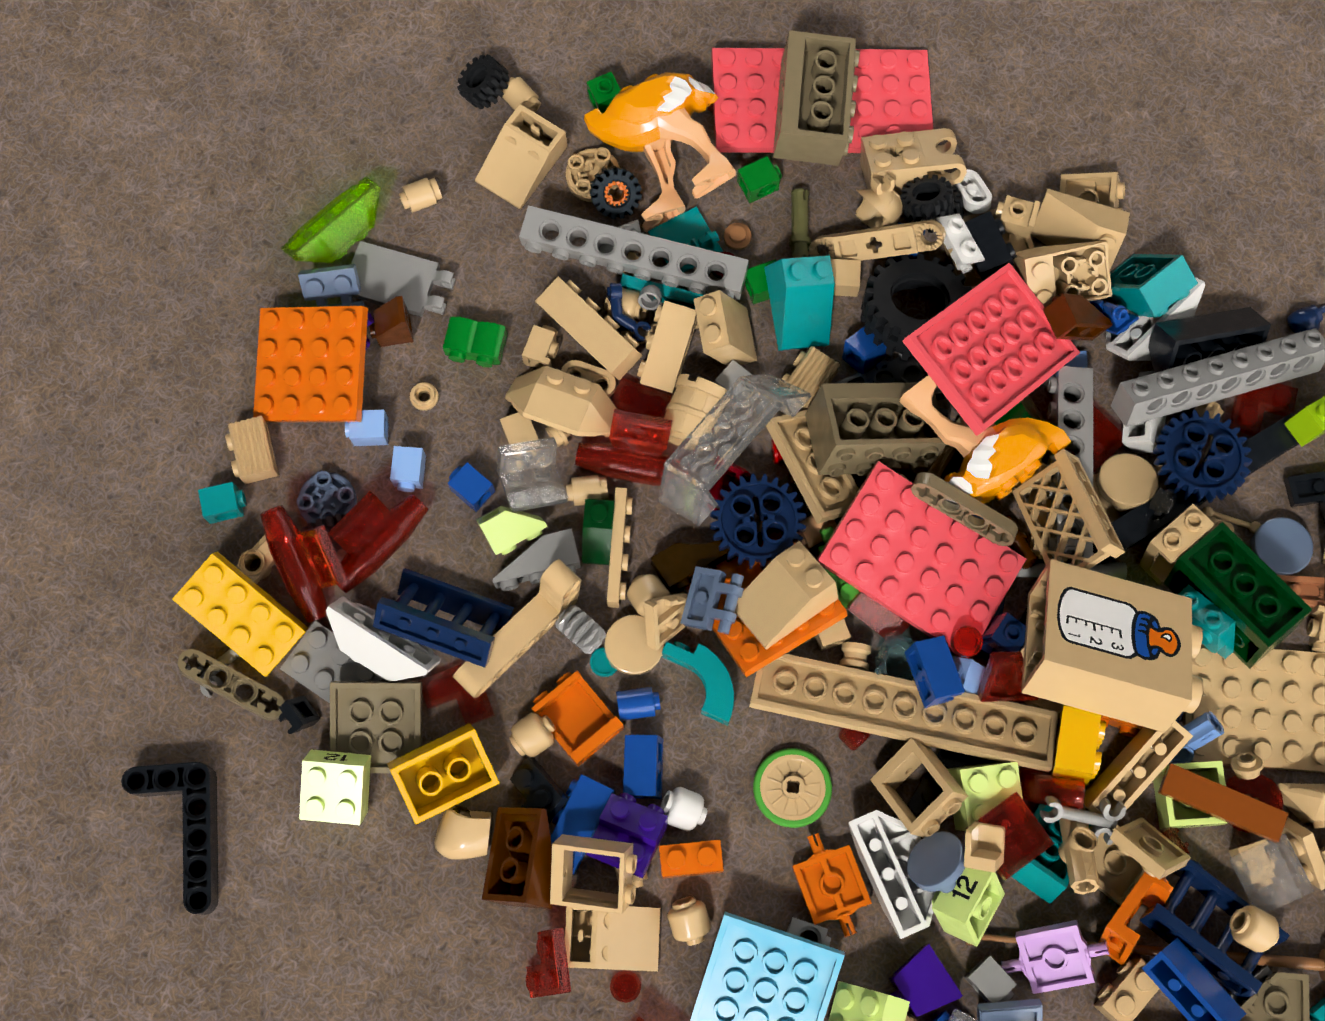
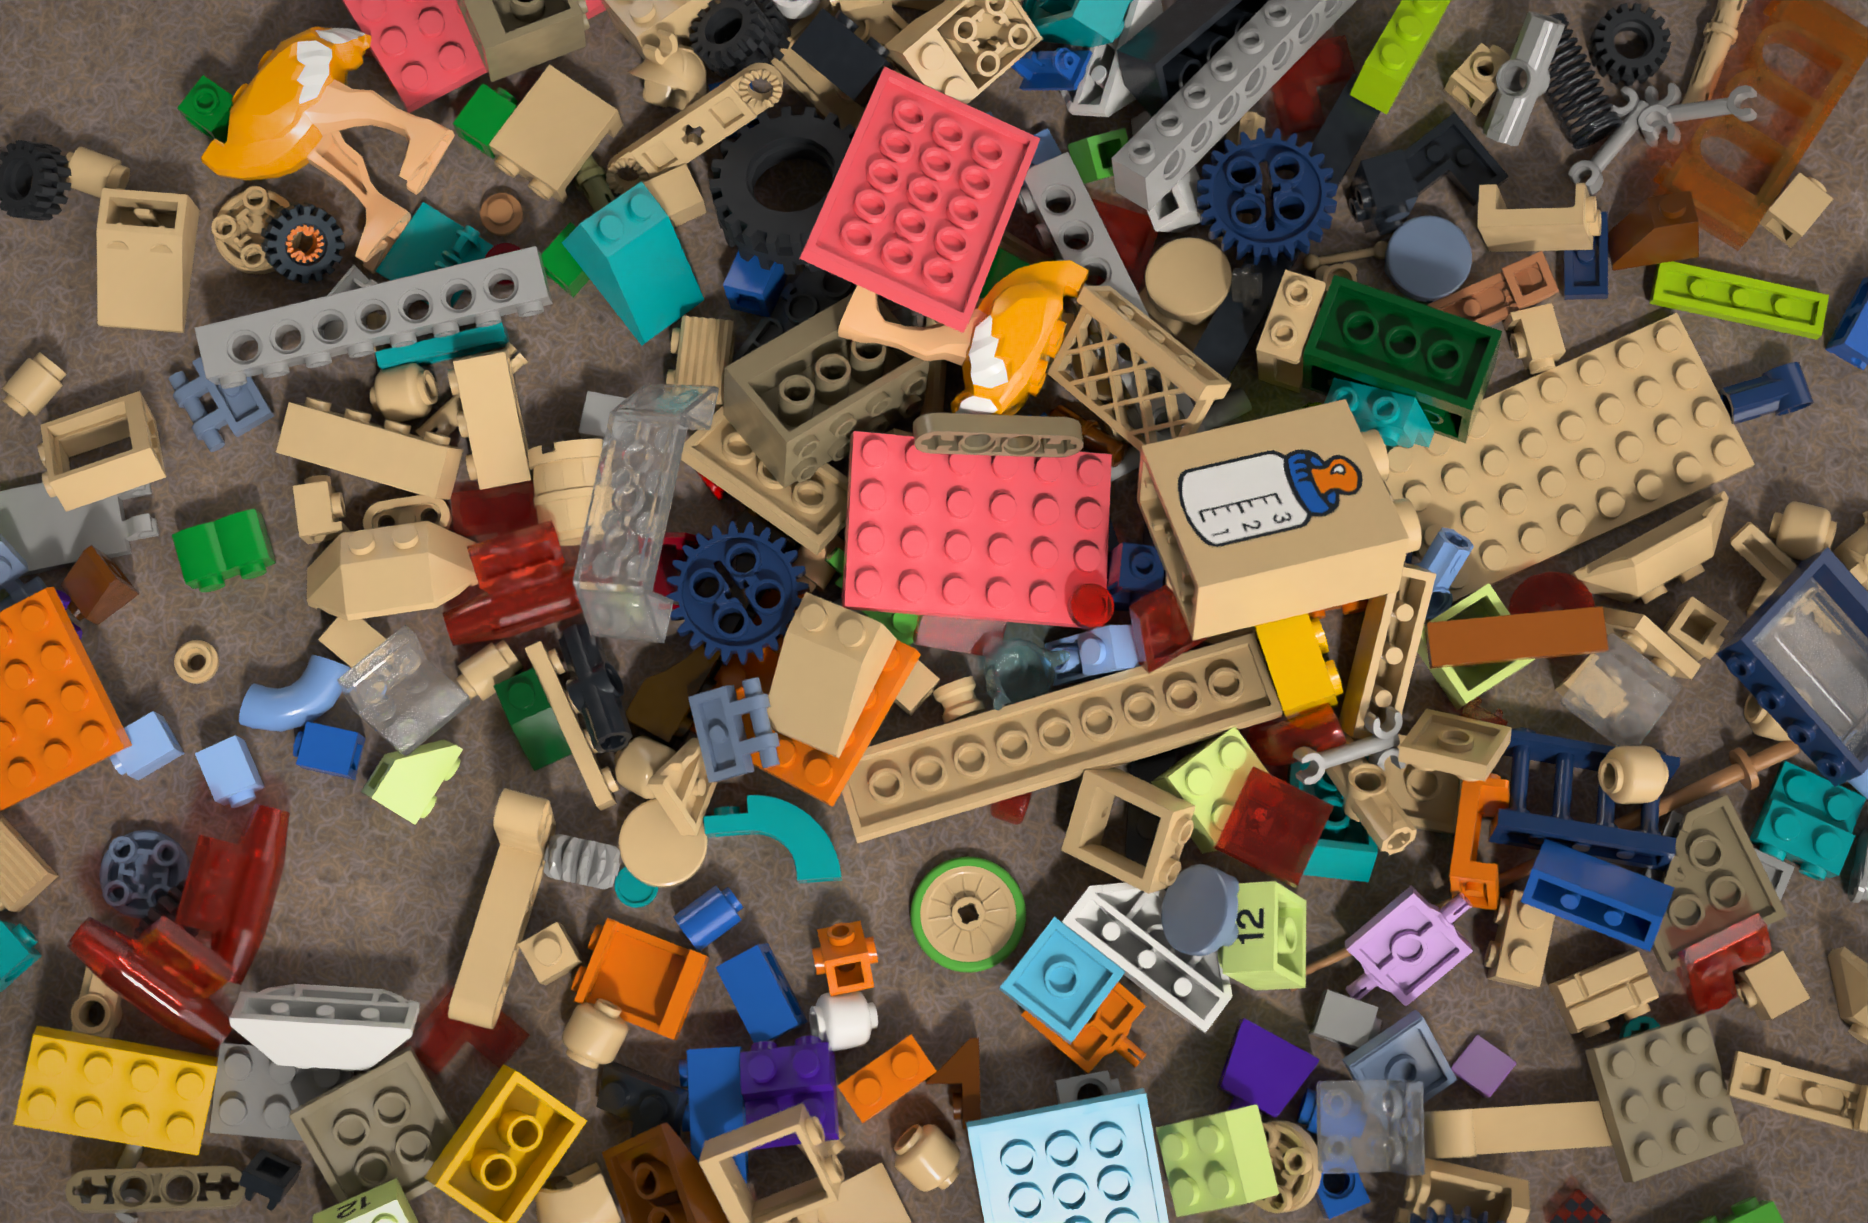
camera: 30 degrees left, 5 degrees up
(437, 632) = (393, 972): dark blue fence -> none
(442, 236) = (92, 429): none -> tan window
(465, 449) = (296, 704): none -> medium blue cylinder
(528, 265) = (238, 406): none -> sand blue plate
(532, 673) = (551, 953): none -> tan brick
(538, 558) = (476, 798): light grey slope -> none
(560, 436) = (412, 620): tan plate -> none
(614, 295) = (382, 389): dark blue arm -> none
(643, 533) = (595, 689): none -> black piece
(646, 297) = (426, 368): light grey hinge -> none
(705, 772) = (845, 957): none -> orange brick
(725, 329) = (555, 355): tan brick -> none
(740, 880) = (965, 1070): none -> reddish brown slope
(792, 205) = (553, 133): none -> tan panel
(829, 858) = (1062, 980): none -> medium azure plate
(934, 671) = (1069, 667): blue hinge -> none
(961, 241) = (806, 70): white hinge -> none
(984, 847) = (1248, 860): tan panel -> none
(1075, 318) = (1009, 96): reddish brown slope -> none
(1107, 379) = (1094, 154): none -> bright green brick
(1247, 765) = (1523, 571): tan plate -> none
(1275, 491) = (1382, 193): none -> black brick

